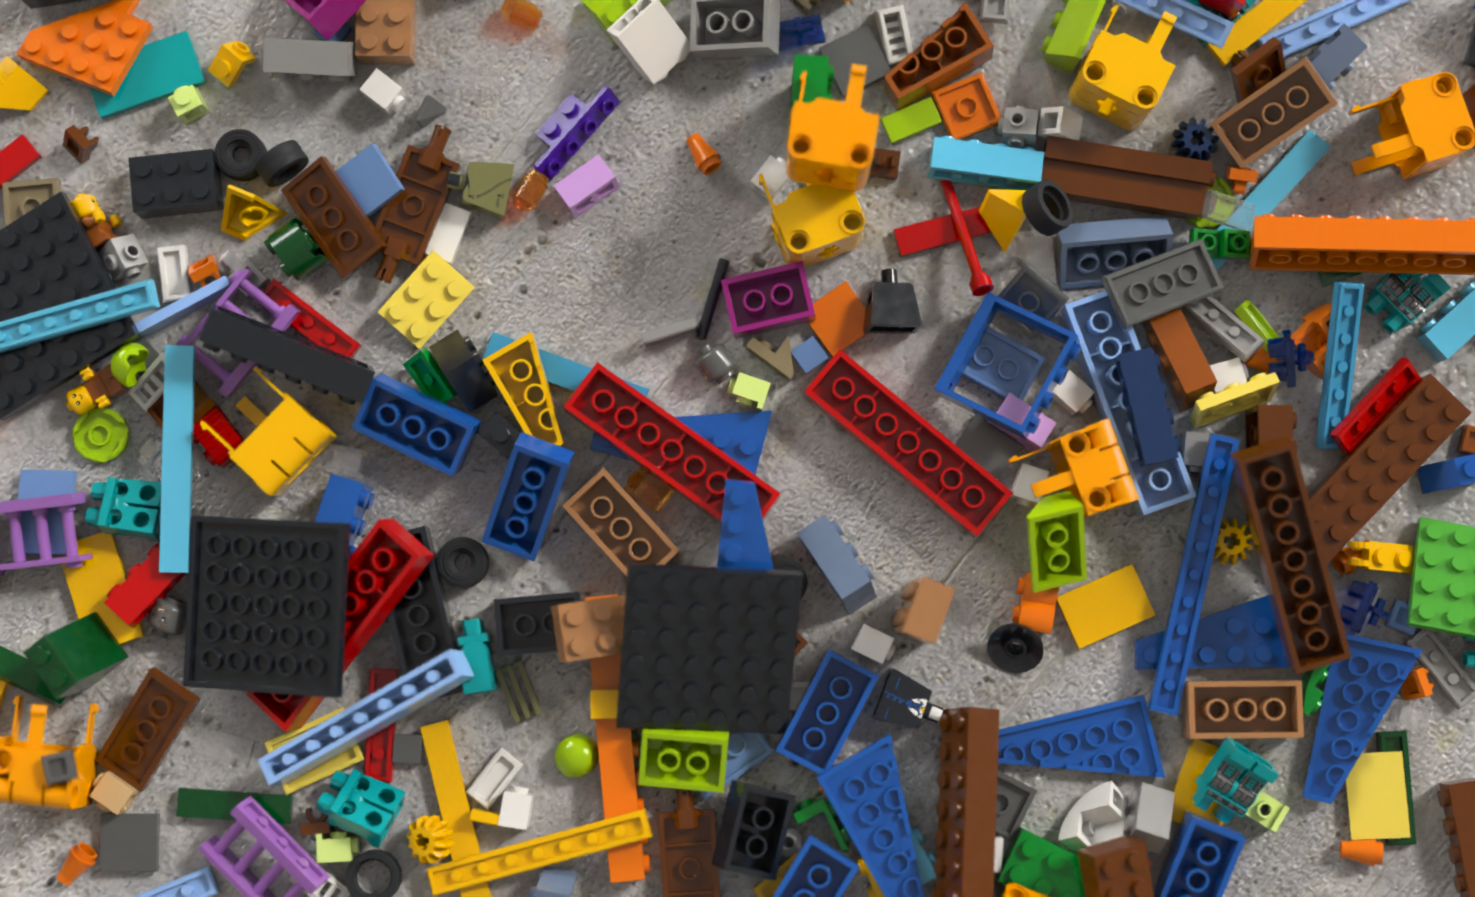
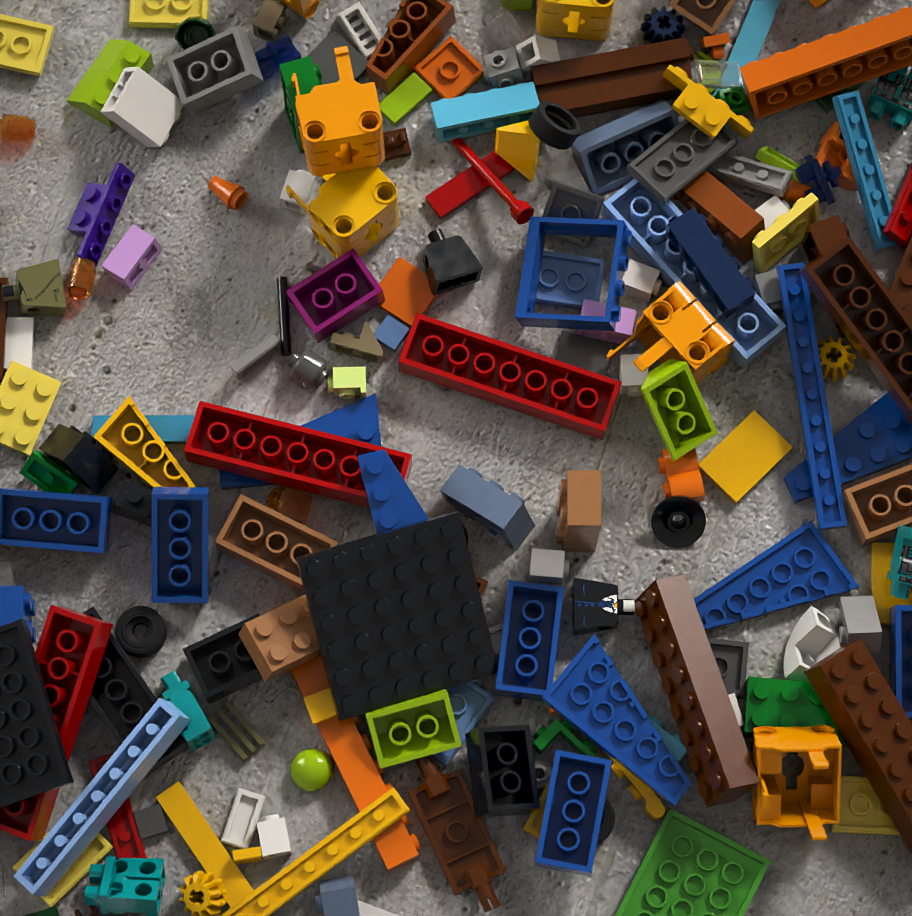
camera: 20 degrees left, 10 degrees down
(1200, 245) = (702, 108): none -> yellow bracket

